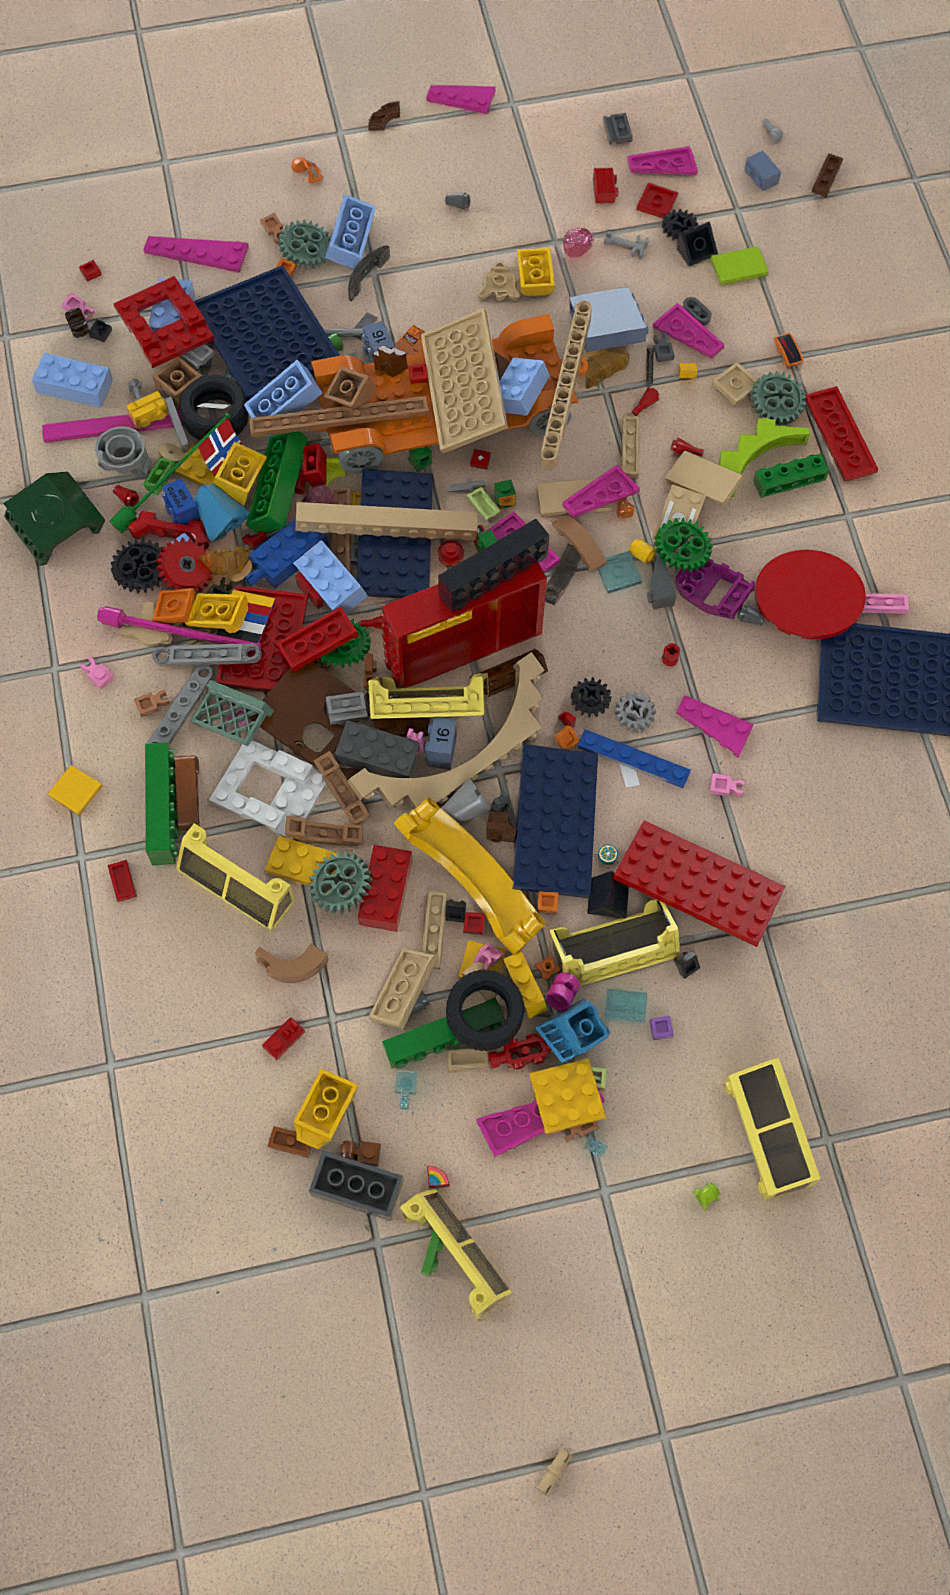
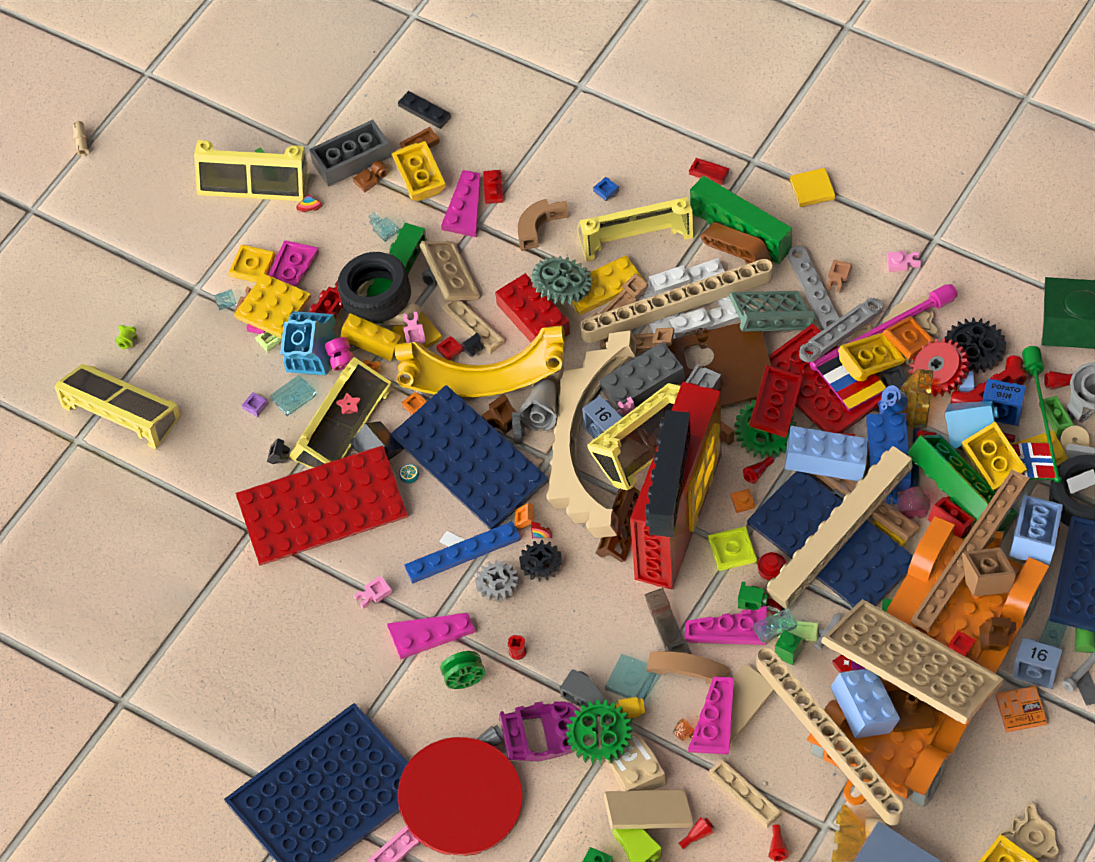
camera: 140 degrees right, 10 degrees down
(210, 941) = (606, 188): none -> blue plate
(247, 564) = (893, 400): none -> blue piece
(249, 1176) = (424, 109): none -> black plate
(288, 790) = (676, 300): none -> tan beam
(325, 1043) = (463, 207): none -> dark pink wing
(499, 509) = (774, 625): none -> clear light blue plate
(538, 1166) = (251, 263): none -> yellow tile
(599, 954) = (348, 408): none -> coral plate
(727, 664) = (462, 670): none -> green wheel

